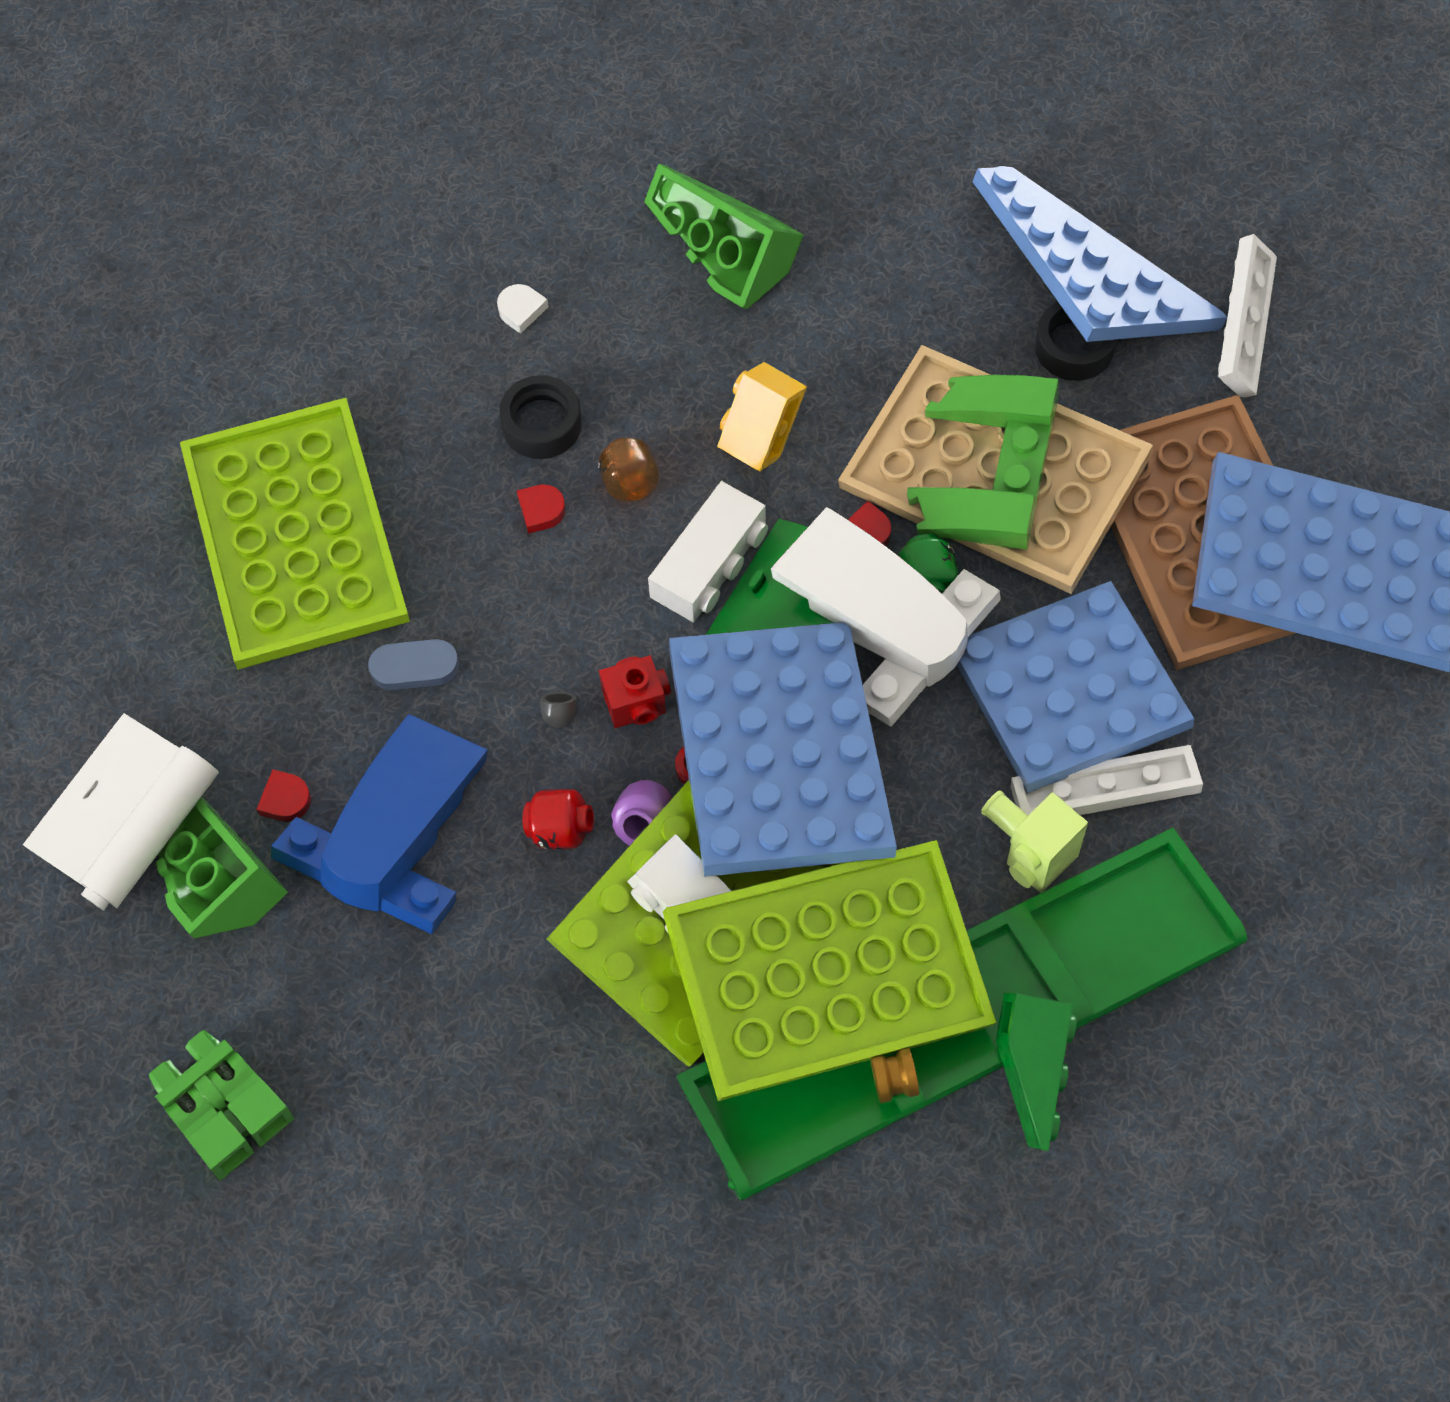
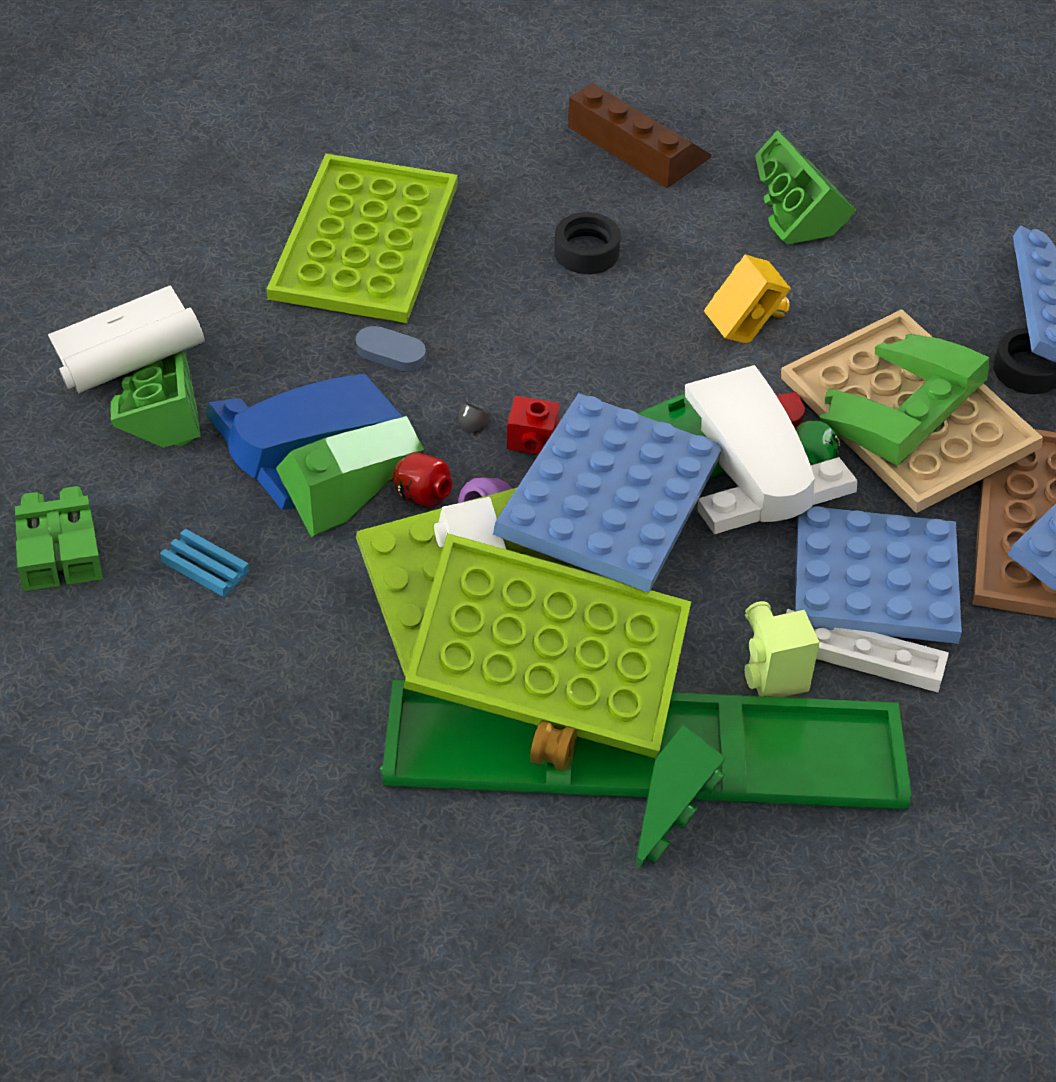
camera: 25 degrees right, 15 degrees down
(284, 797) = (242, 384): red tile -> none
(350, 1037) = (235, 572): none -> dark azure tile
(473, 859) = (344, 471): none -> bright green wedge
(504, 242) = (633, 136): none -> reddish brown slope
(520, 306) = (621, 177): white tile -> none
(541, 507) = (549, 297): red tile -> none
(626, 468) = (629, 294): clear orange head -> none
(708, 552) = (651, 369): white brick -> none

